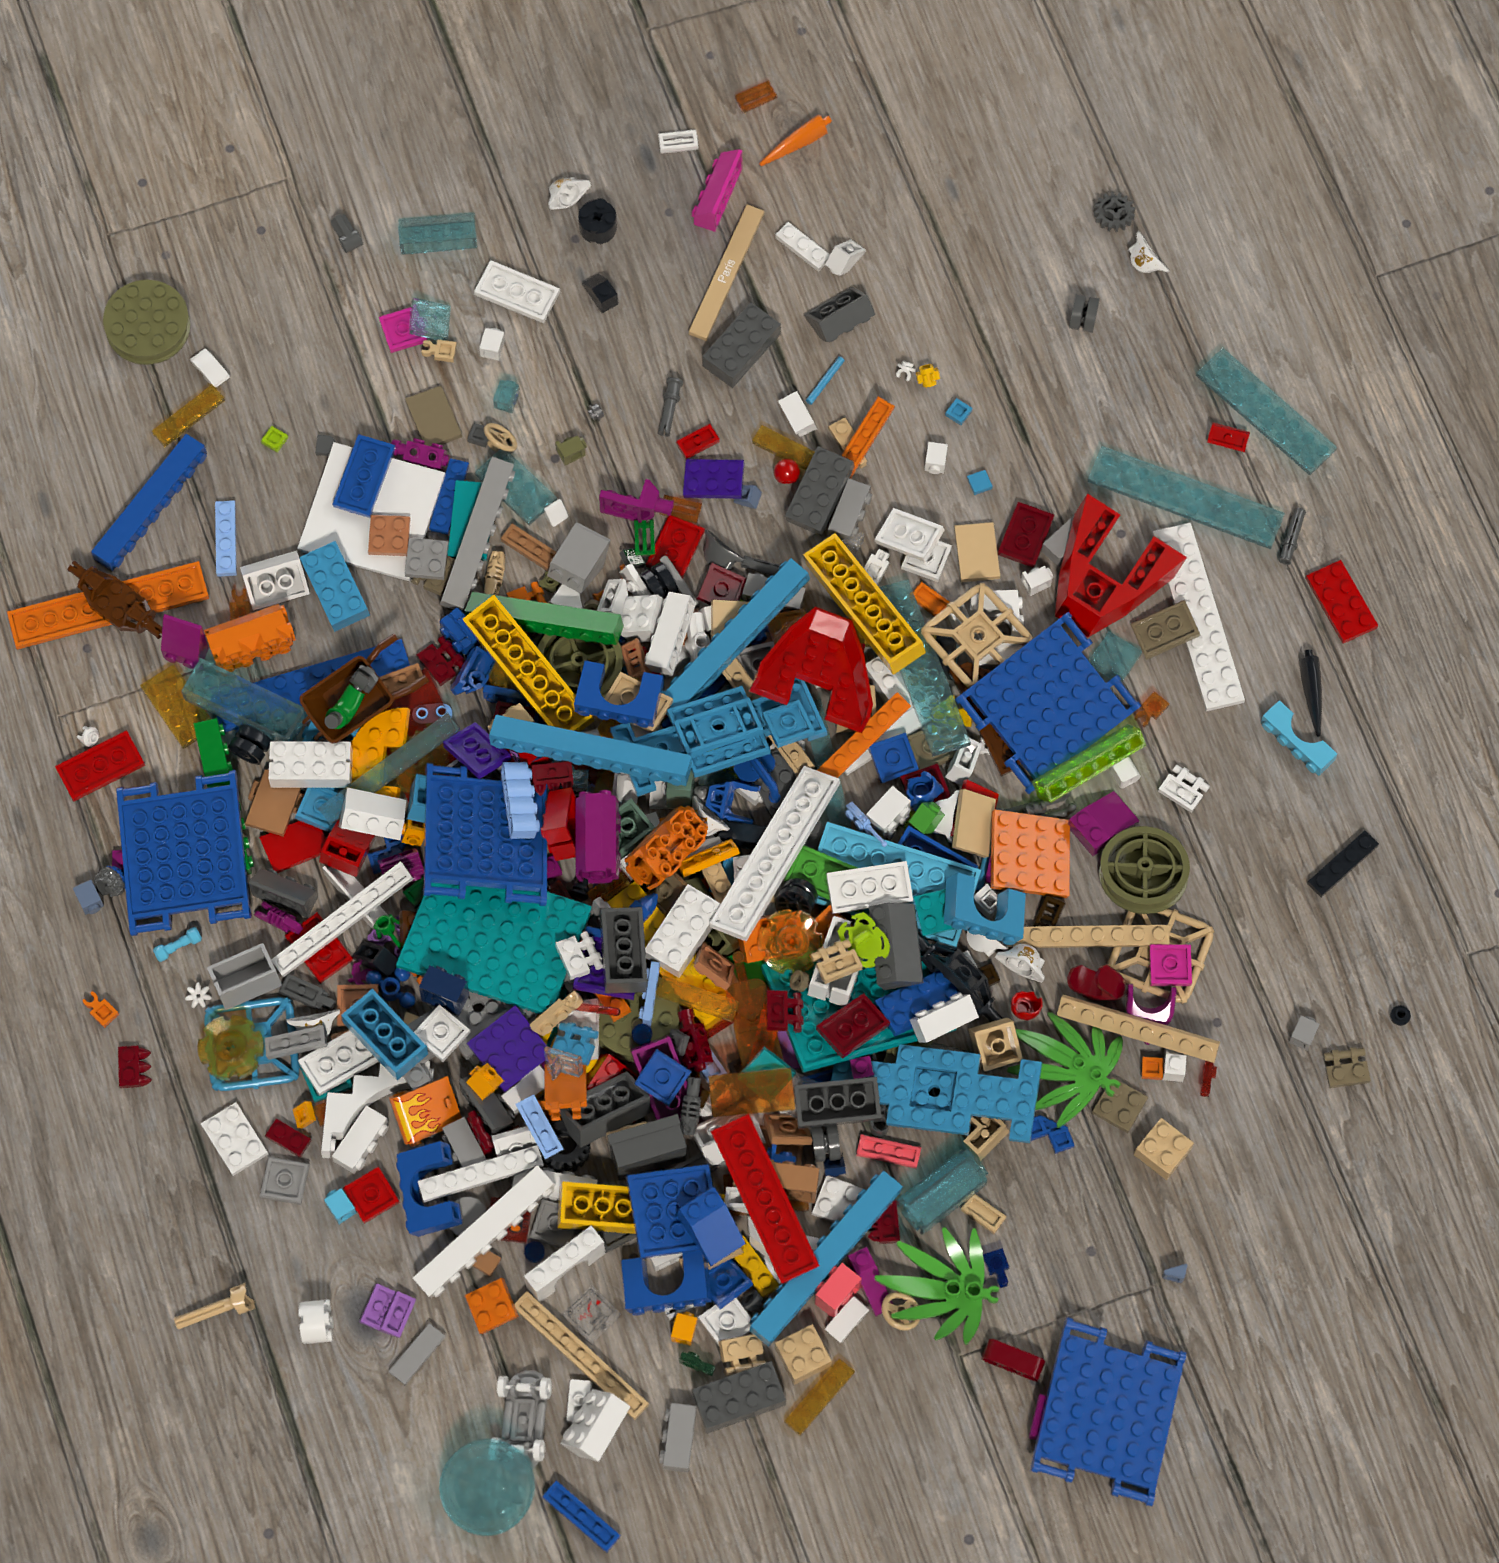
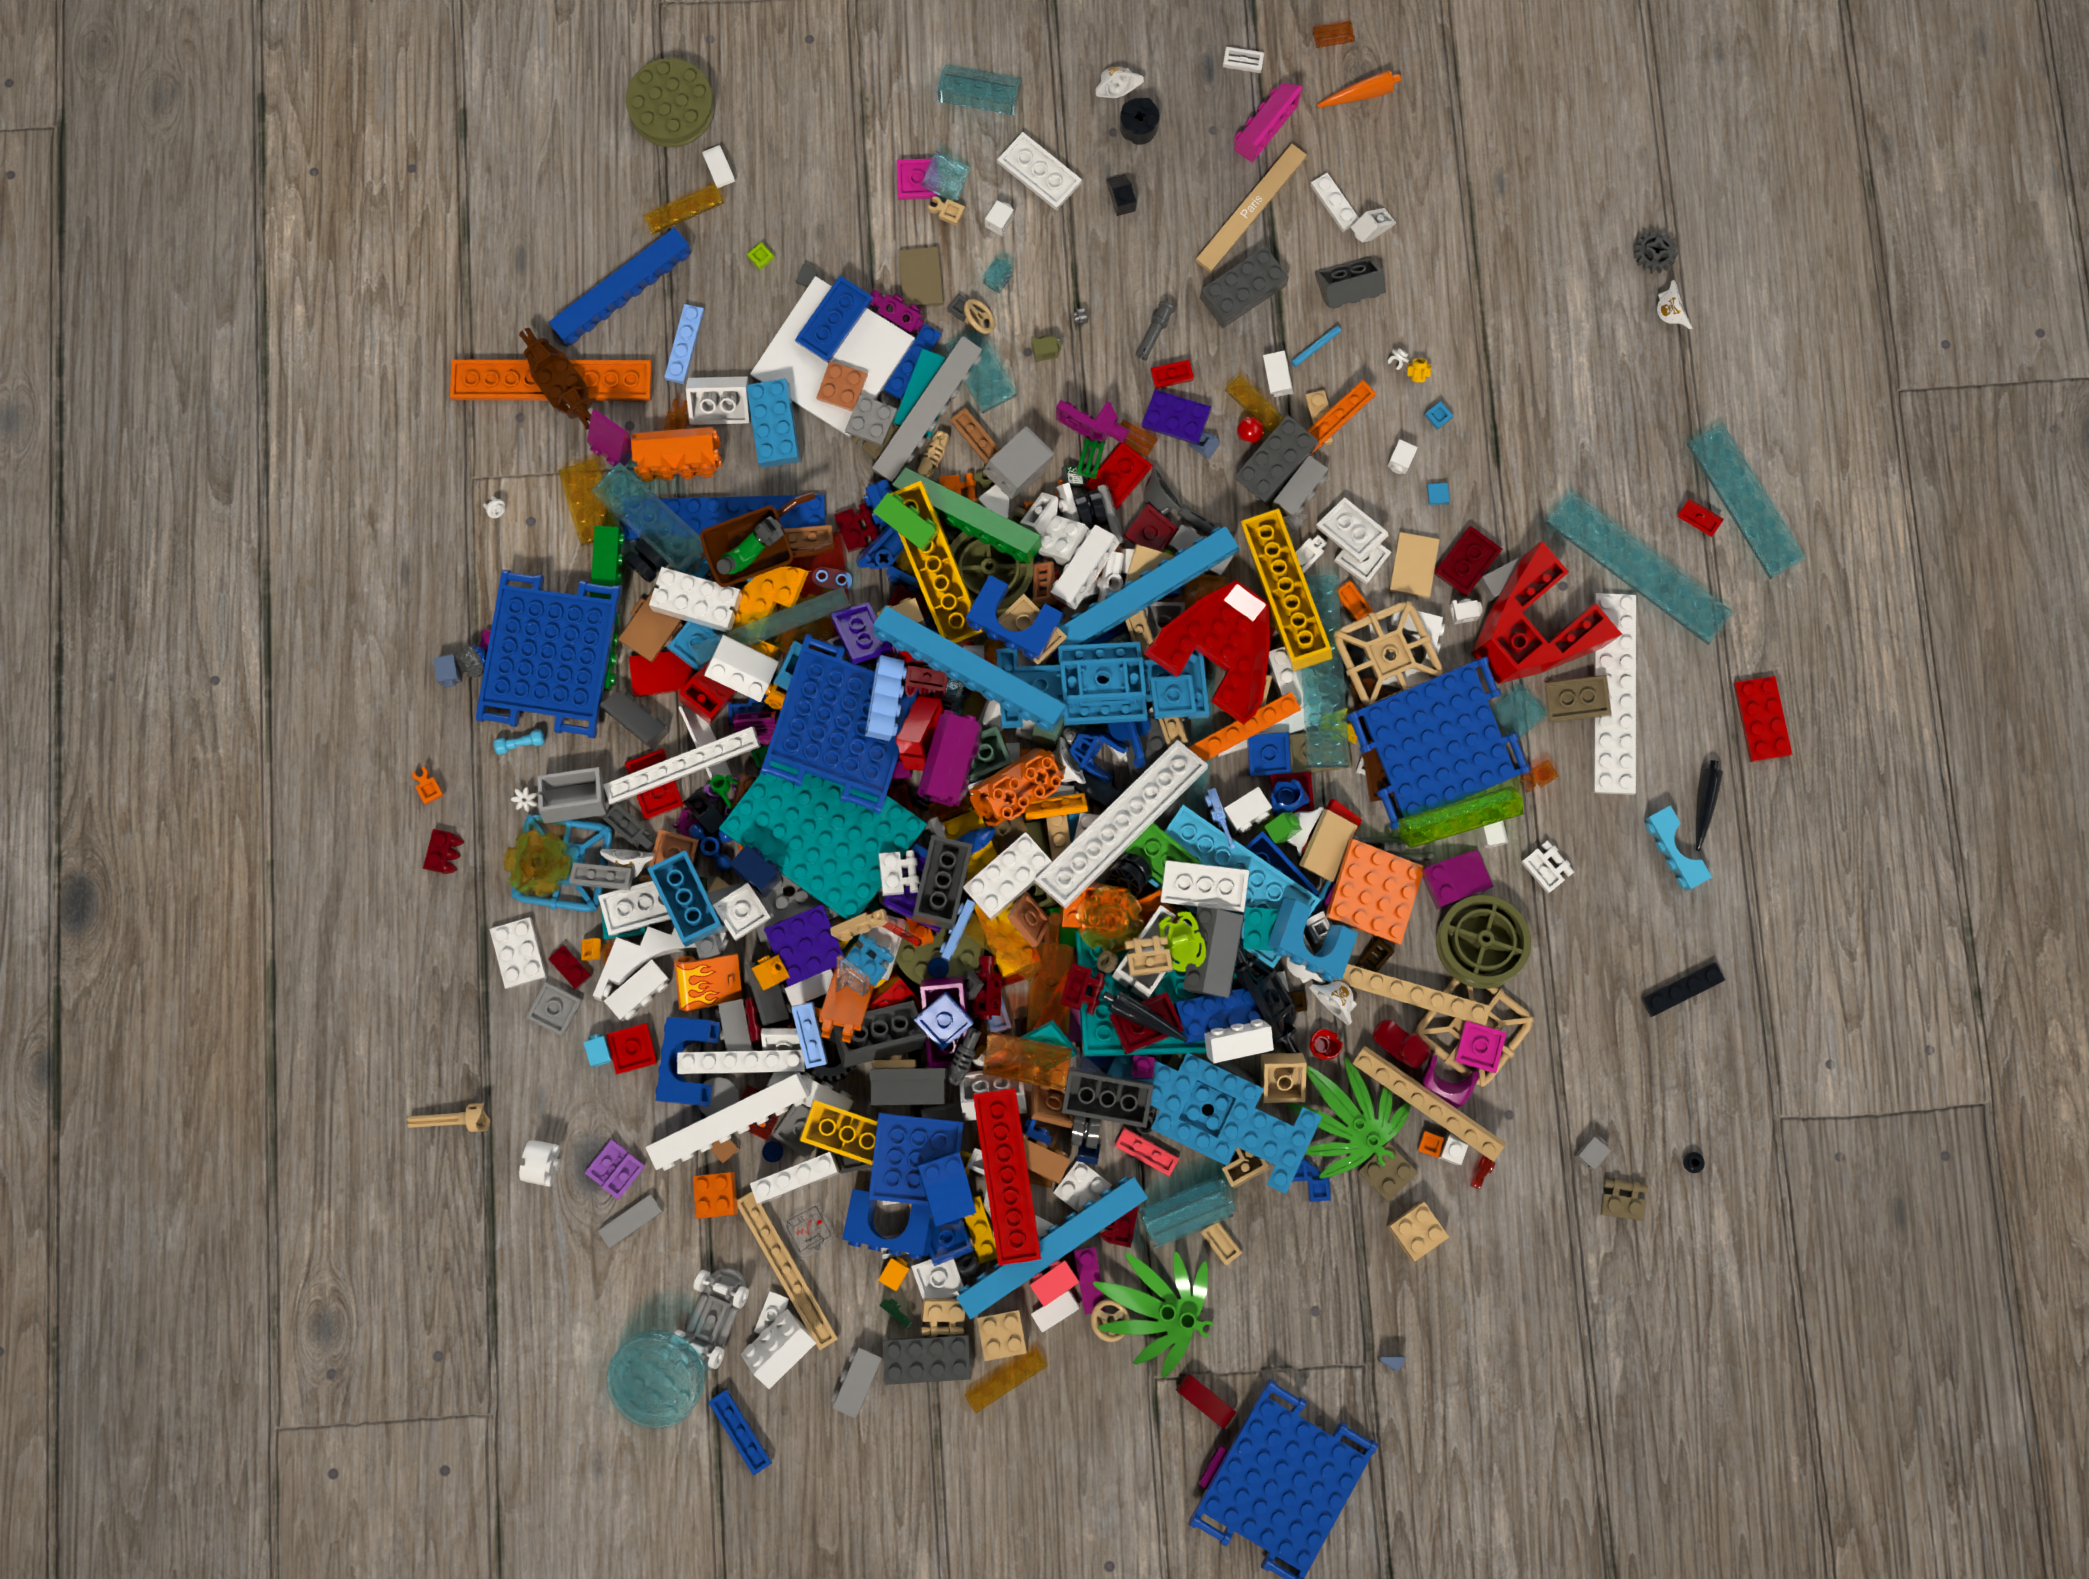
camera: 15 degrees right, 10 degrees up
(100, 765) = (496, 540): red plate -> none
(279, 919) = (623, 745): magenta hinge -> none
(347, 235) = (890, 68): dark grey piece -> none
(491, 634) = (906, 521): none -> bright green brick
(555, 513) = (1011, 408): white slope -> none
(842, 1016) = (1136, 1012): none -> black piece
(963, 762) = (1336, 780): white slope -> none
(997, 1264) = (1218, 1298): clear blue plate -> none
(1084, 313) = (1594, 349): dark grey wheel -> none
(1286, 555) = (1721, 656): dark grey pin -> none

